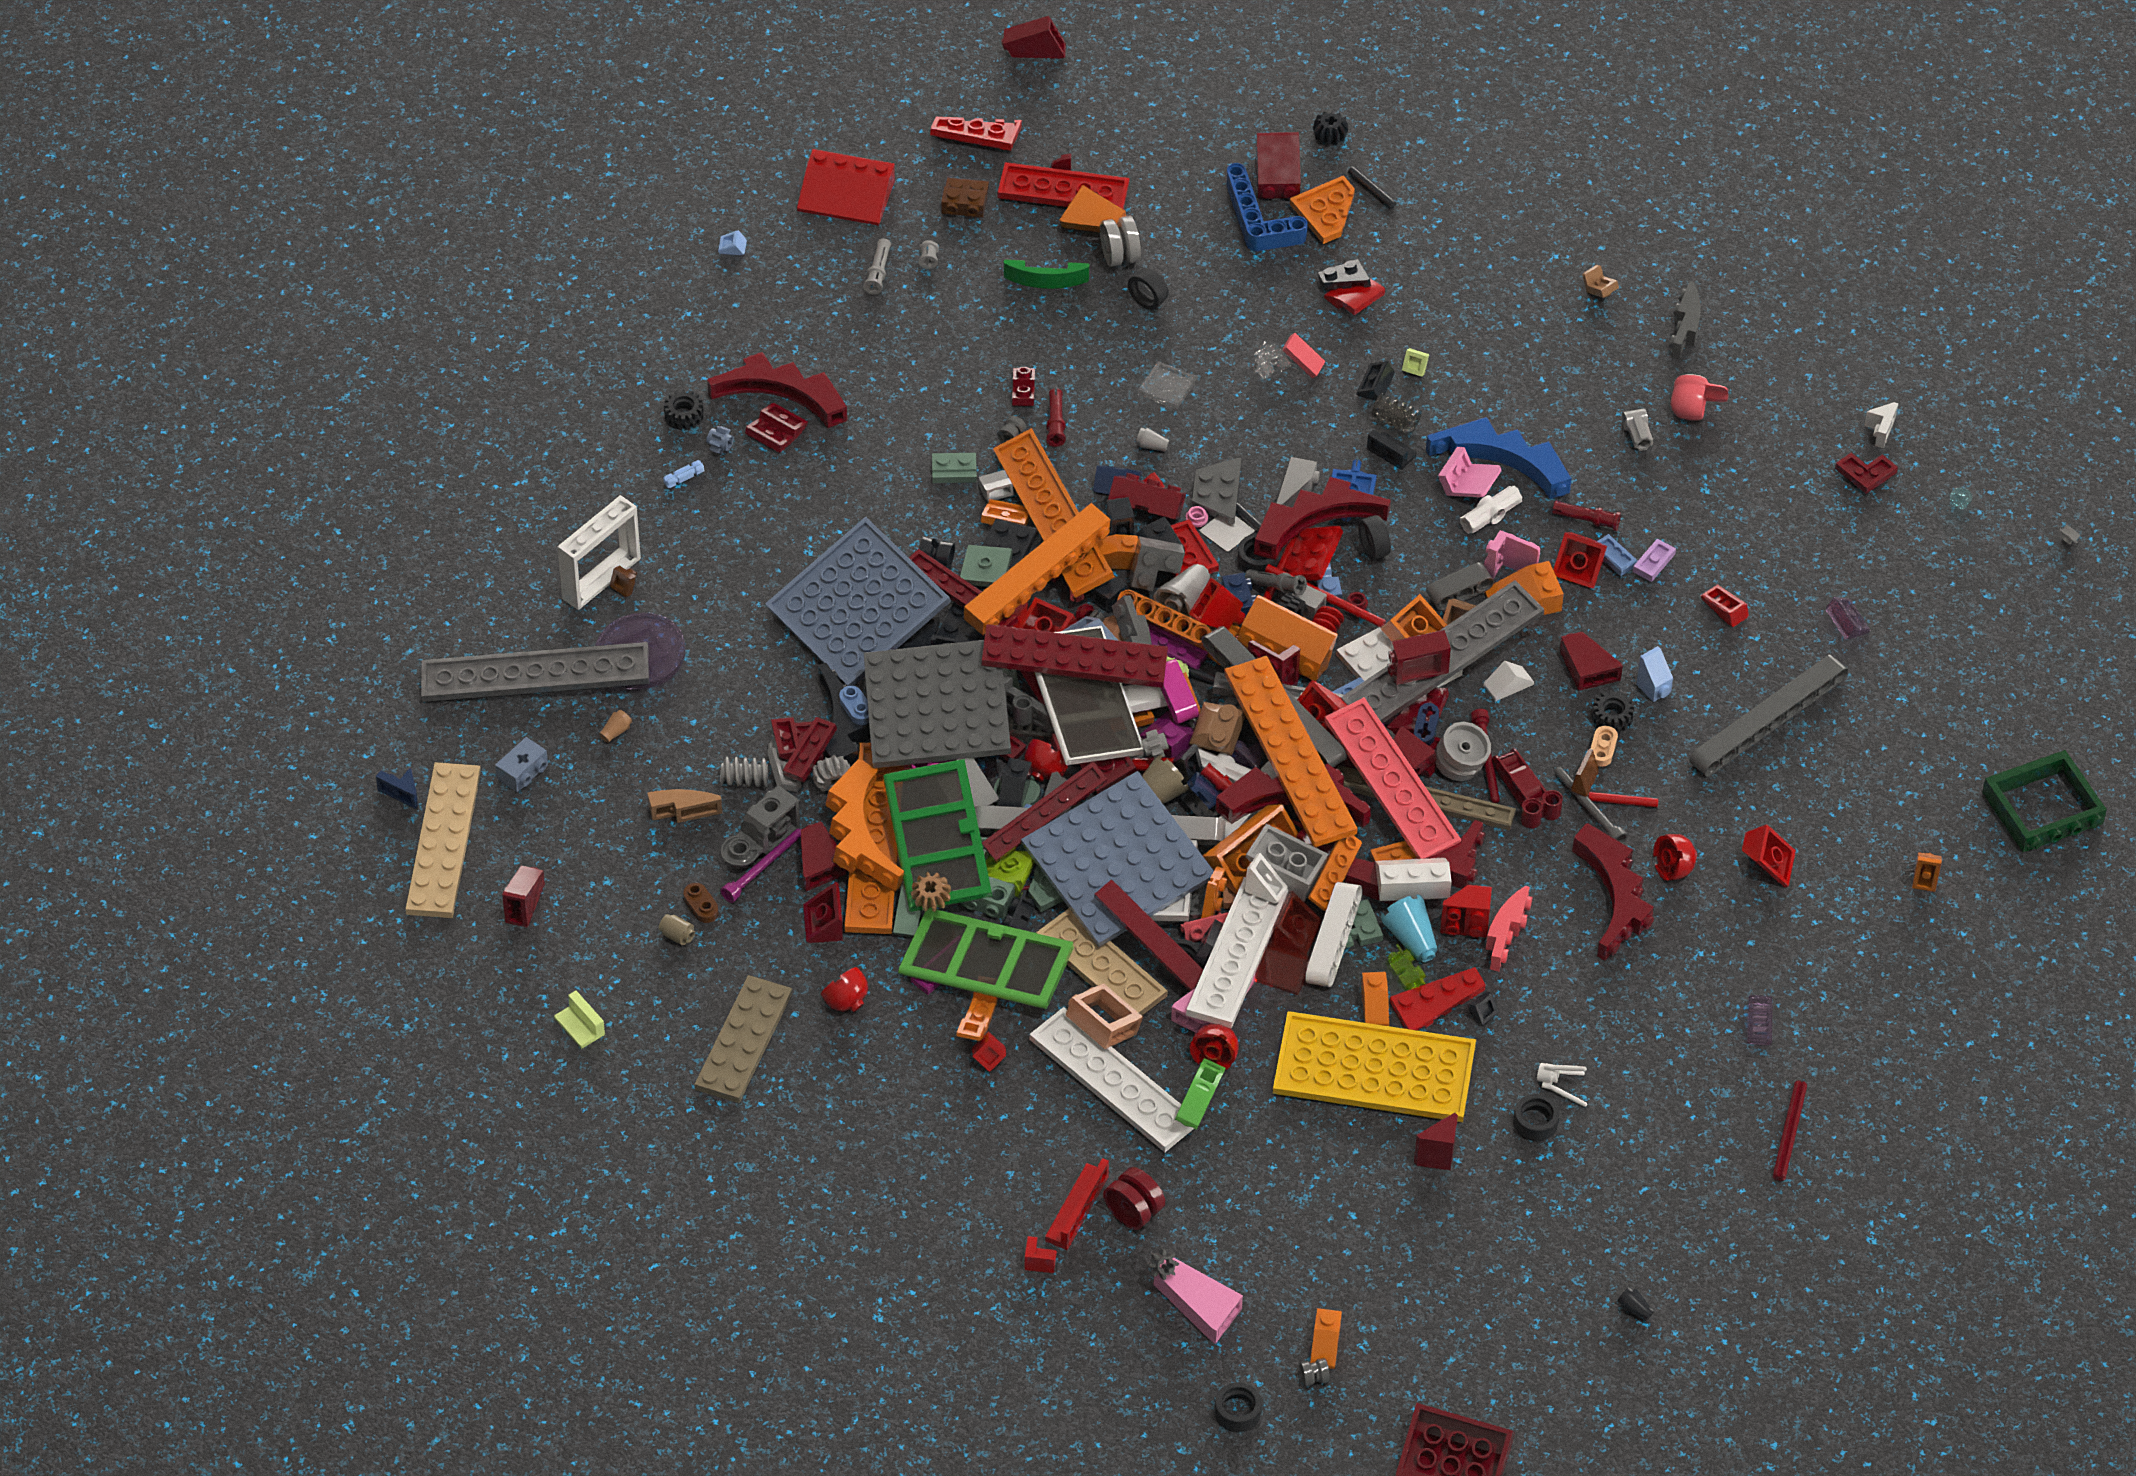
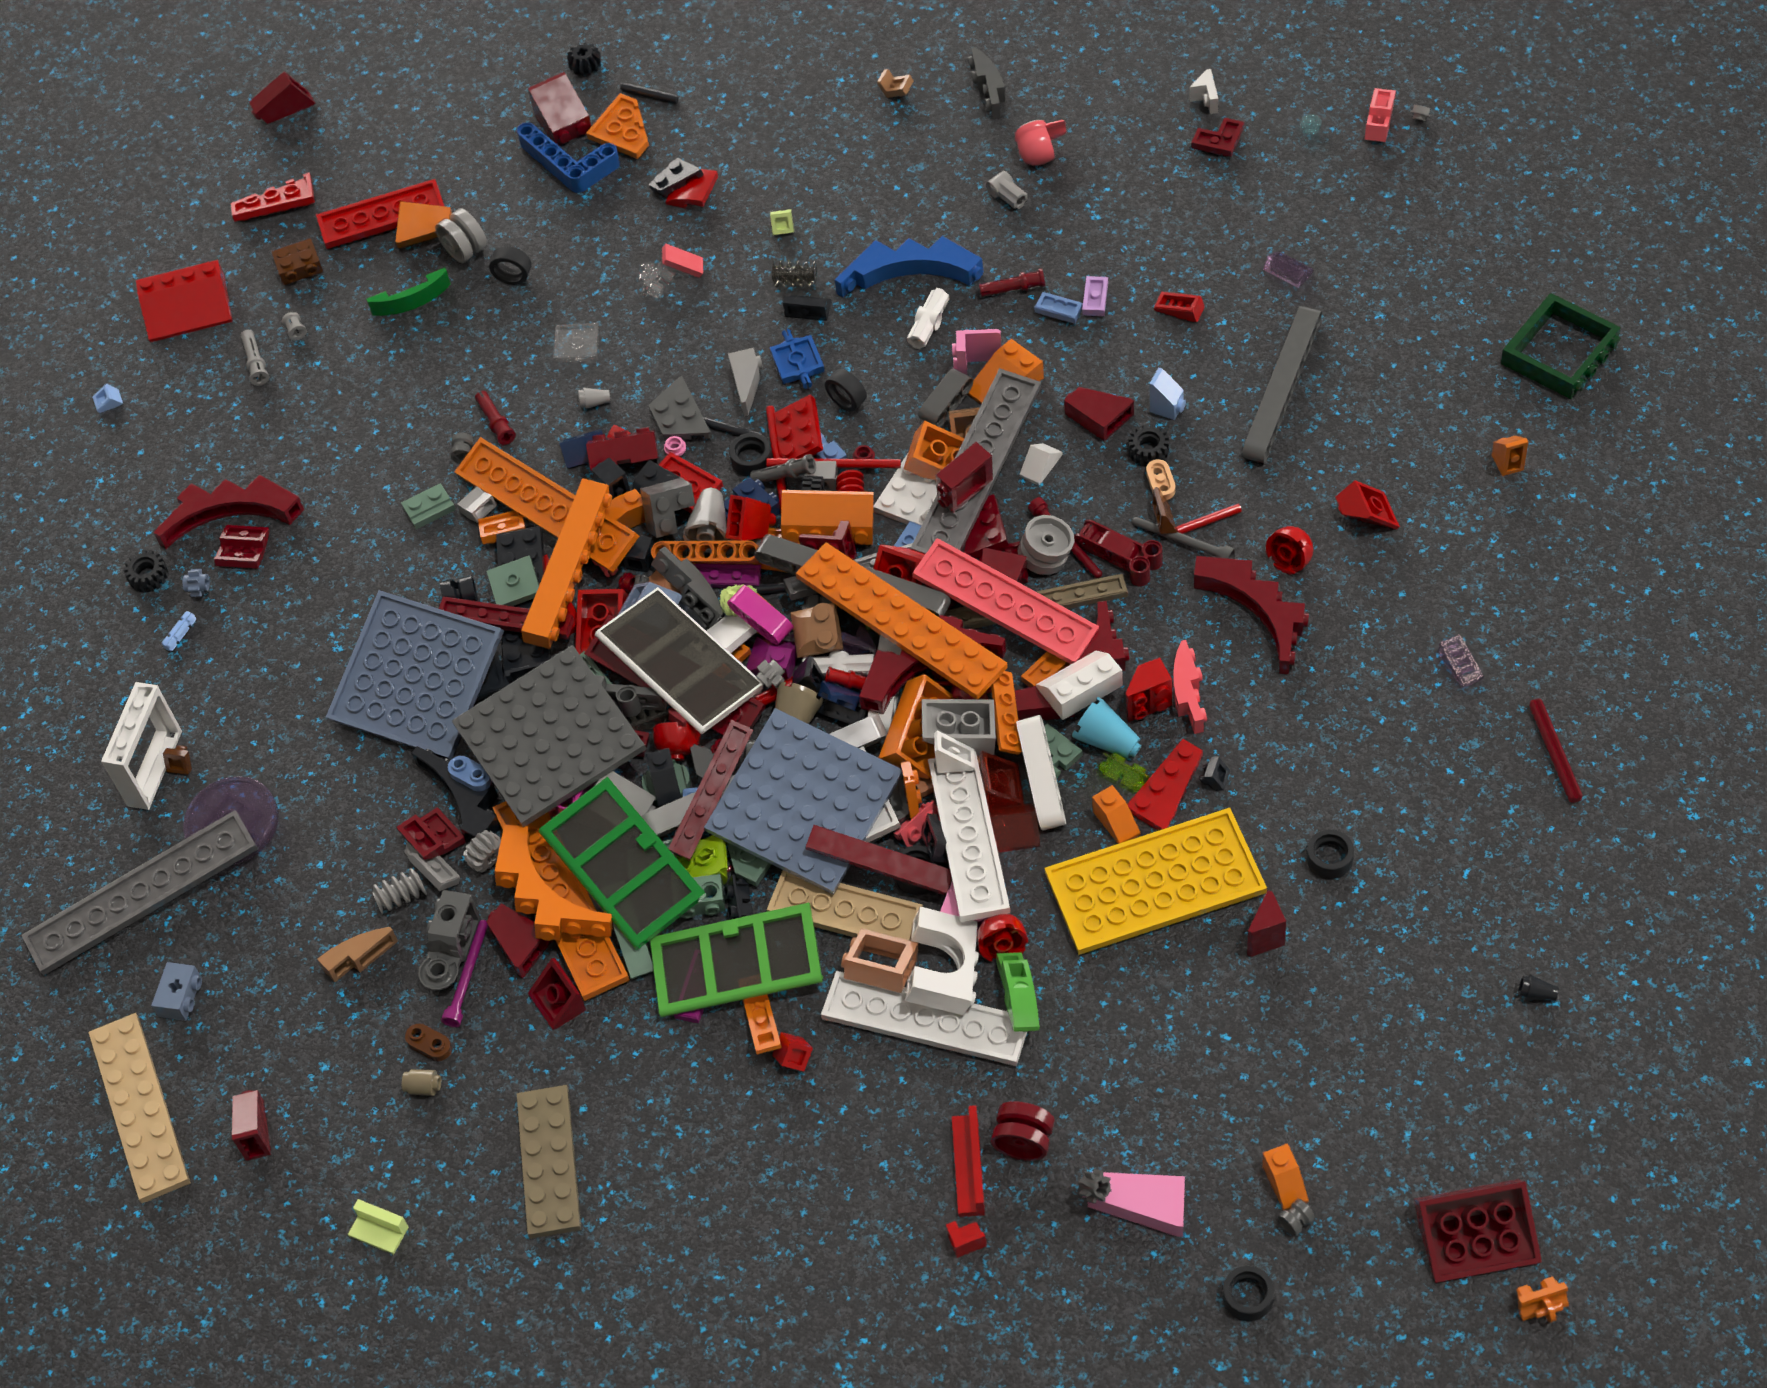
camera: 20 degrees left, 5 degrees up
(399, 789) = (69, 1077): dark blue slope -> none
(616, 725) = (248, 905): medium nougat cone -> none
(809, 749) = (450, 838): dark red plate -> none
(847, 991) = (624, 1062): red cylinder -> none
(929, 884) = (660, 919): medium nougat gear -> none
(1023, 386) = (448, 403): dark red slope -> none
(1062, 163) = (368, 192): dark red tile -> none
(1074, 656) = (652, 628): dark red plate -> none
(1145, 1064) = (939, 990): none -> white arch
(1226, 534) = (708, 450): white sticker -> none
(1310, 508) = (777, 389): dark red arch -> none
(1376, 380) = (756, 254): black slope -> none
(1431, 725) = (1005, 534): dark blue beam -> none
(1466, 479) = (891, 301): bright pink bracket -> none
(1550, 1073) = (1315, 806): white plant -> none
(1579, 559) = (1034, 324): red slope -> none
(2030, 519) = (1380, 115): none -> coral slope

